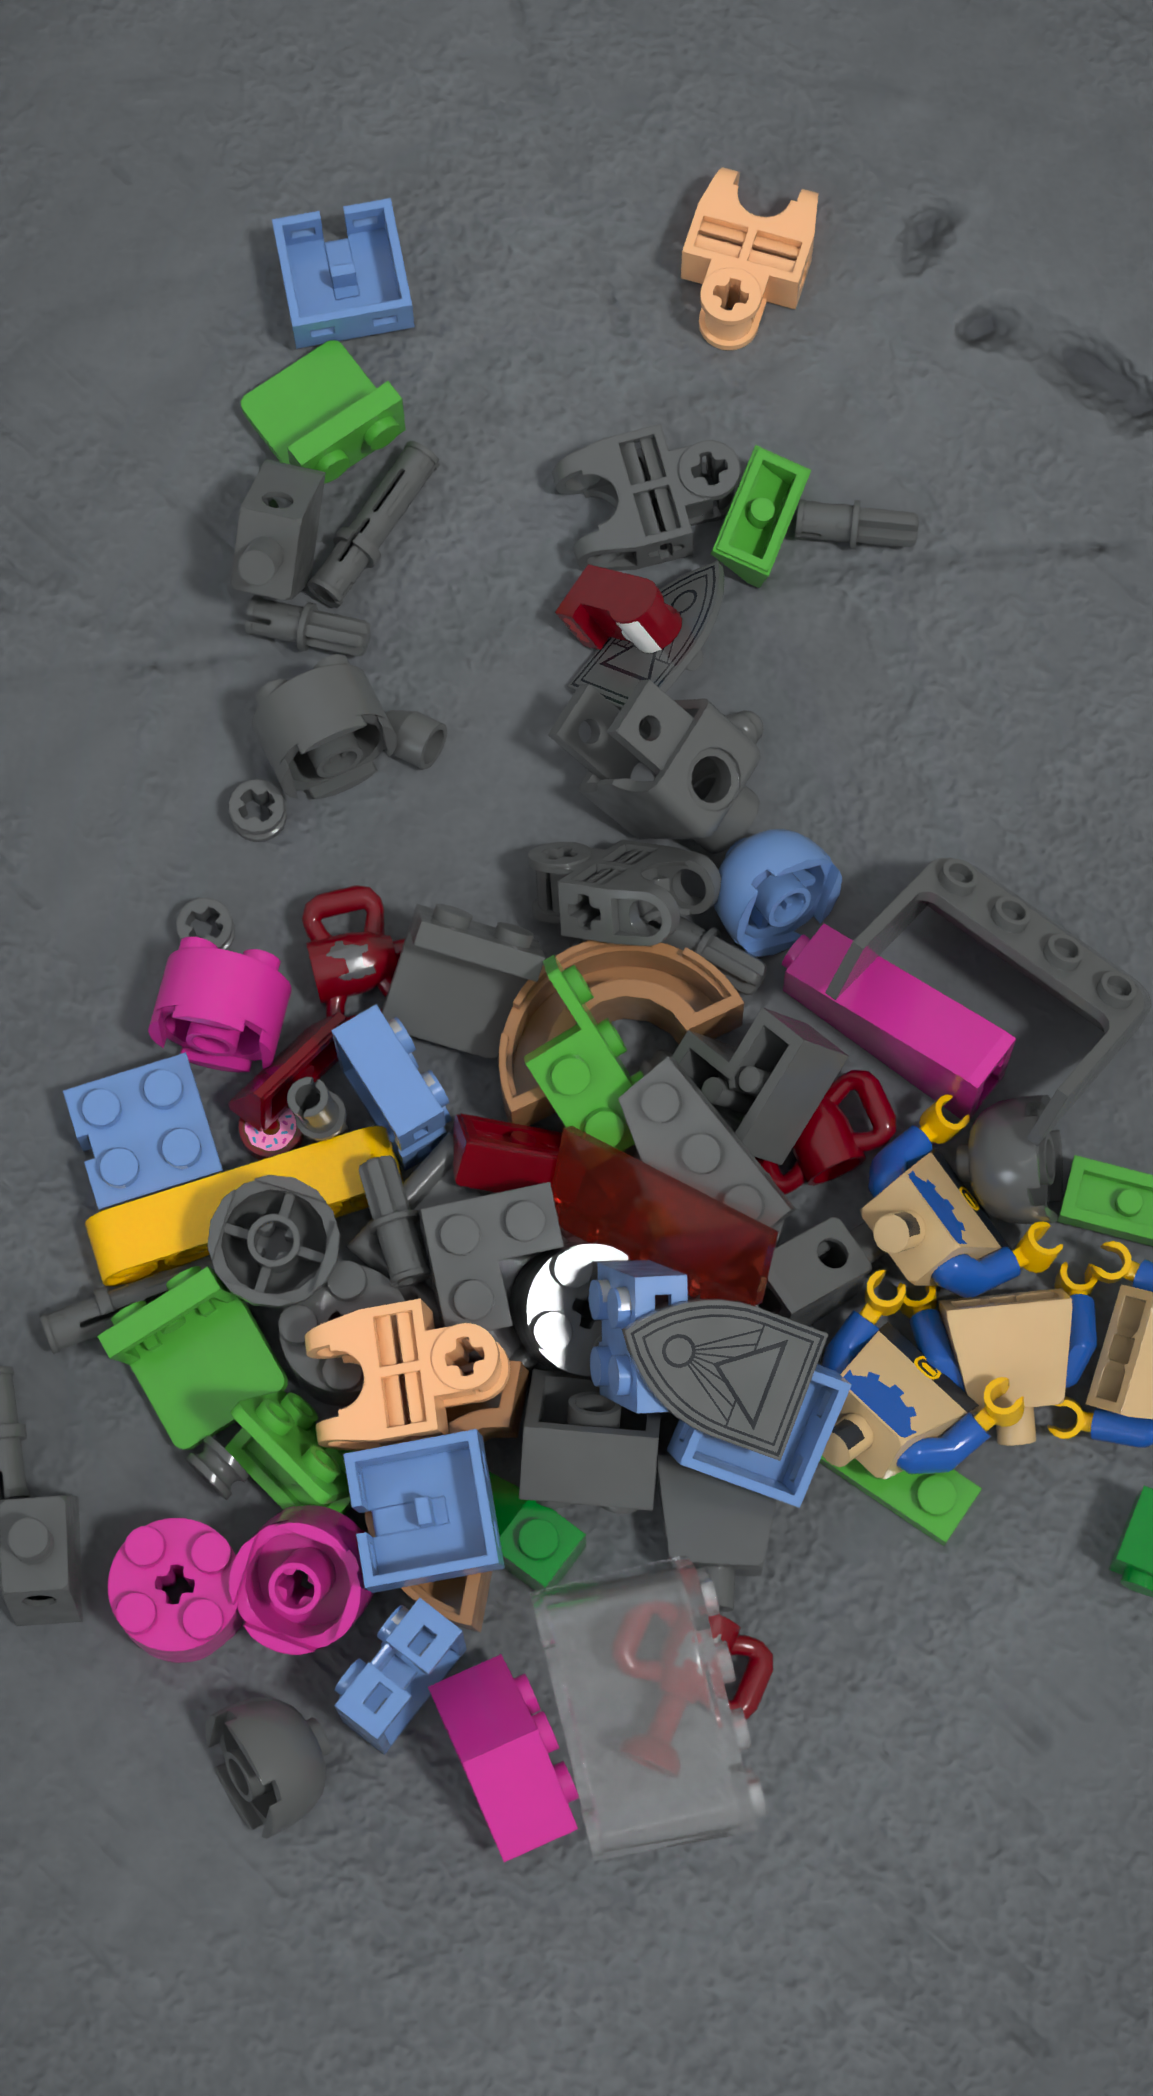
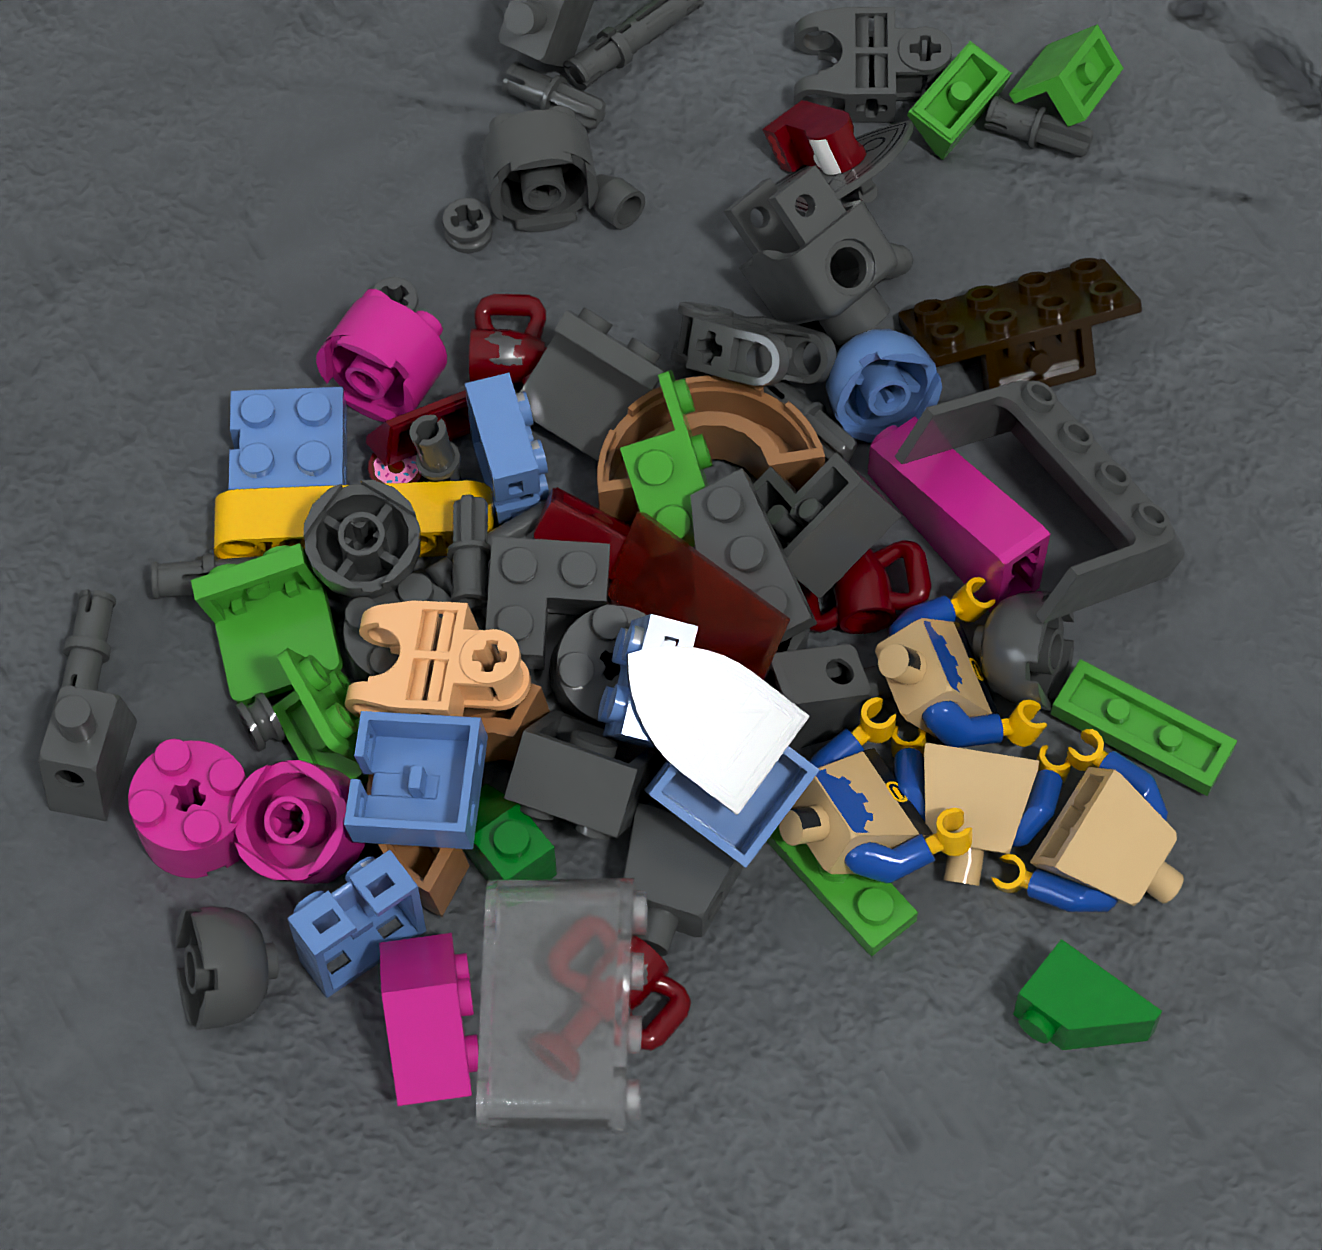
camera: 15 degrees right, 10 degrees down
(874, 451) = (1073, 73): none -> bright green panel
(906, 775) = (1026, 326): none -> dark brown bracket

